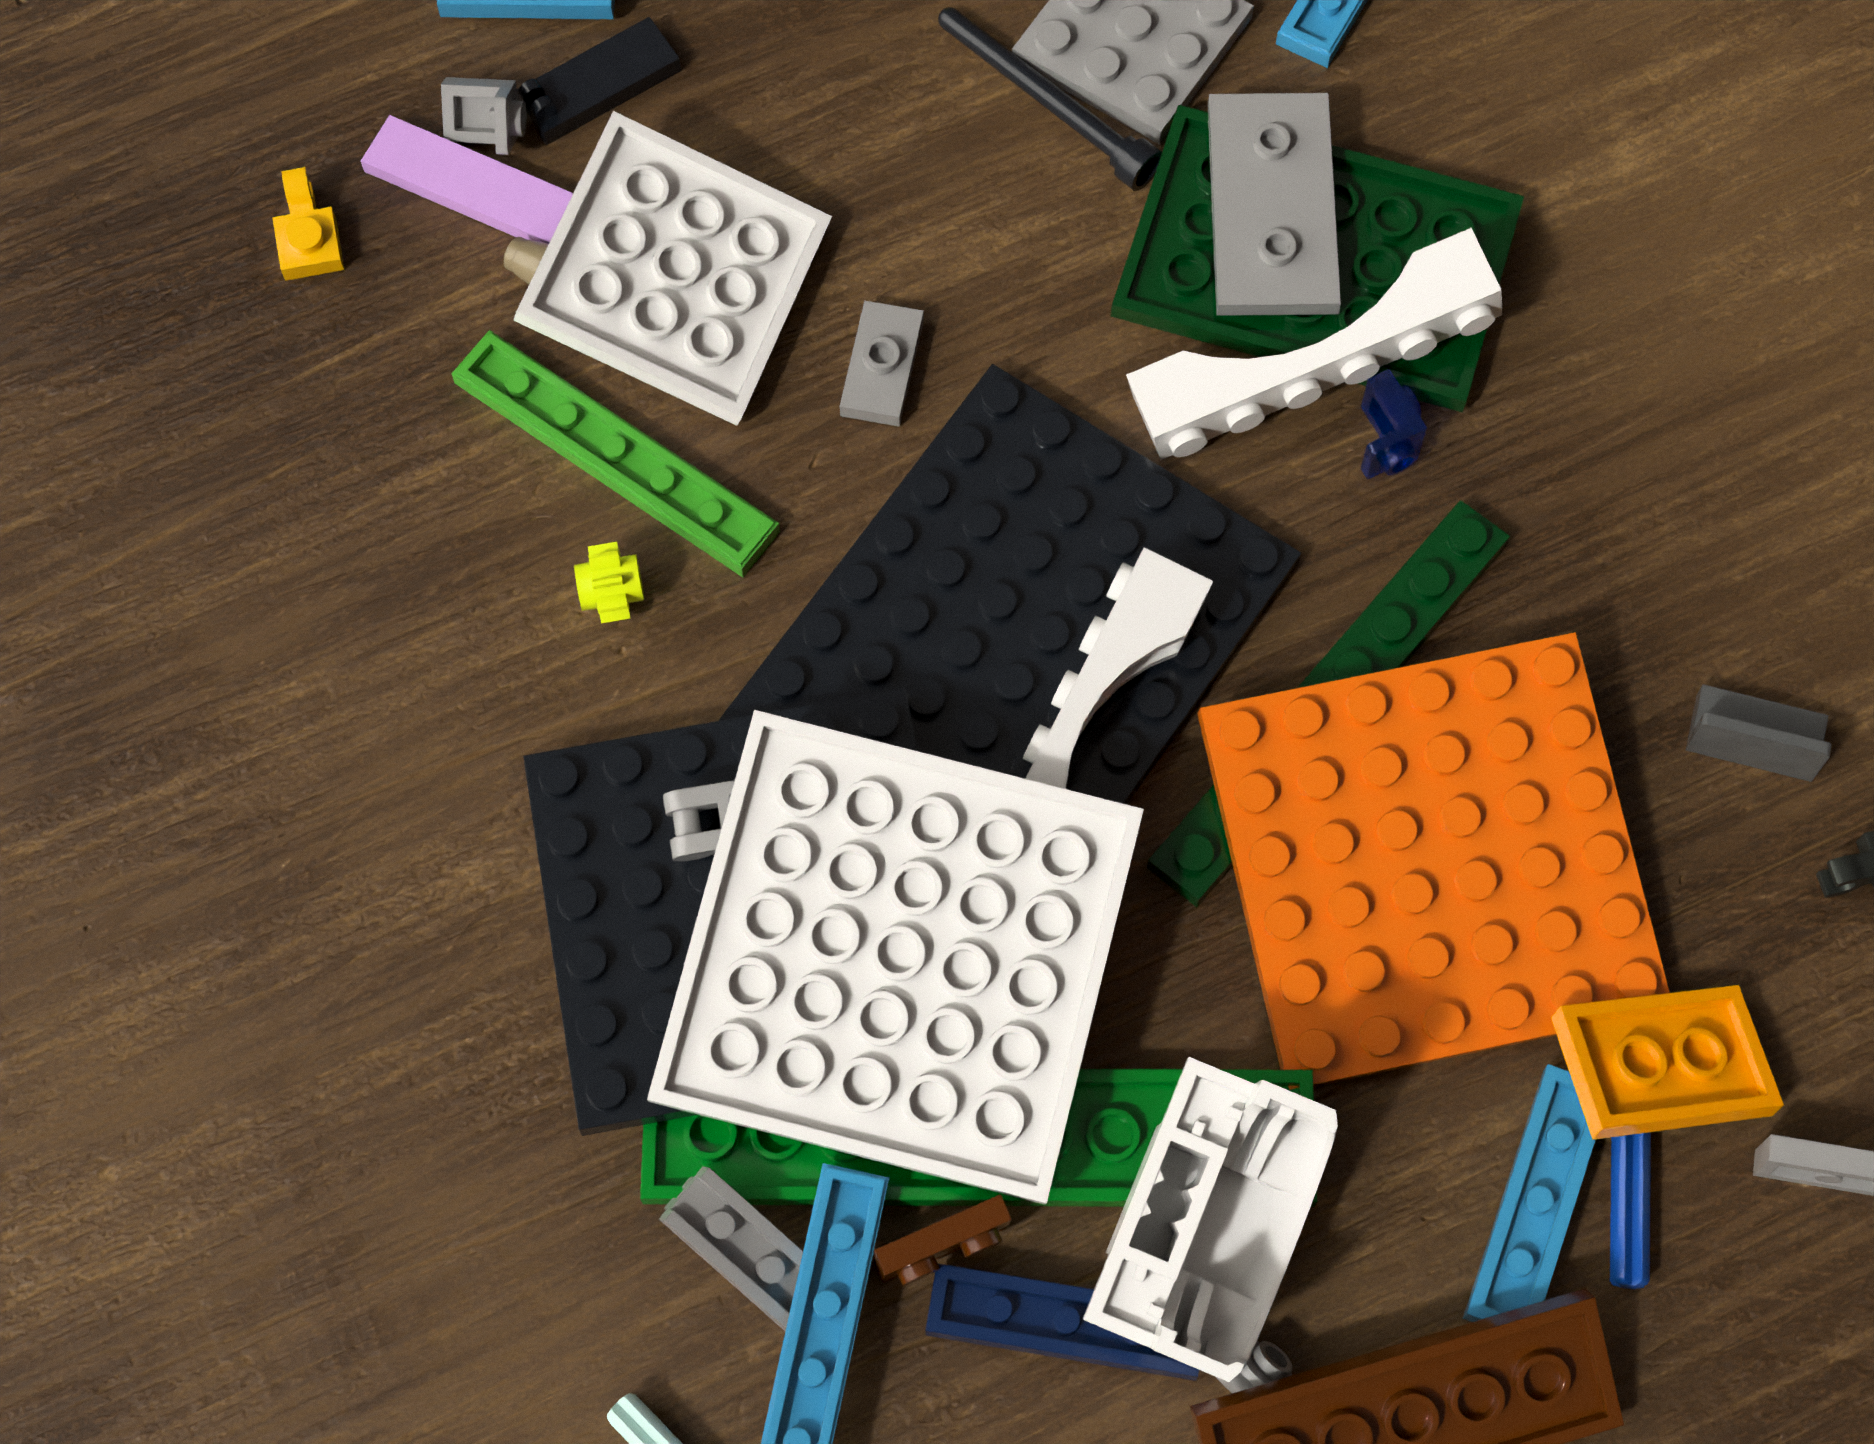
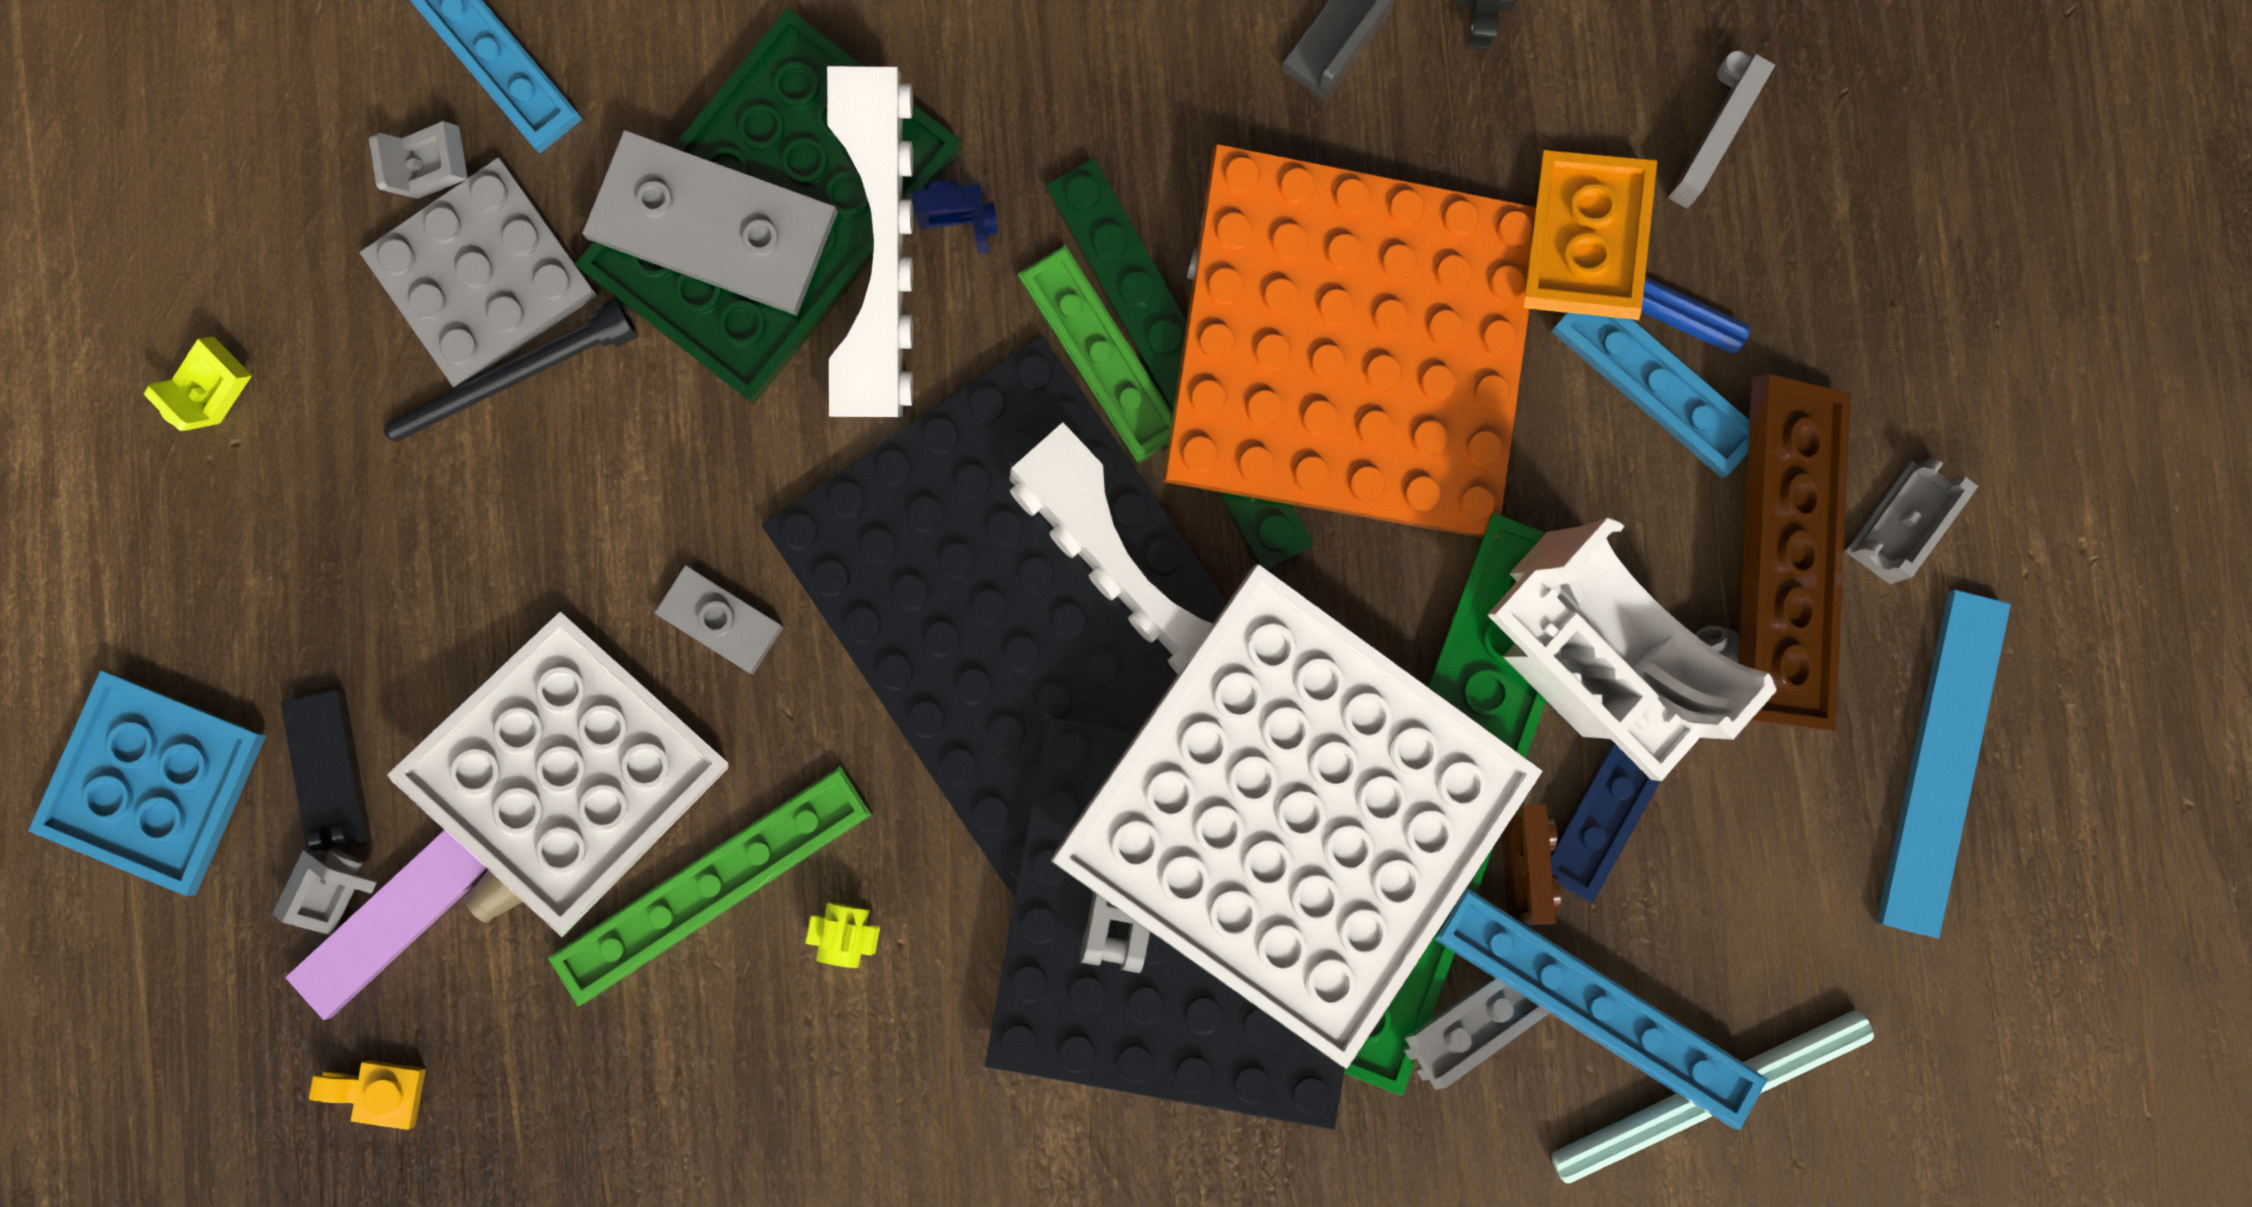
camera: 70 degrees left, 15 degrees up
(1313, 611) = (1099, 353): none -> bright green tile

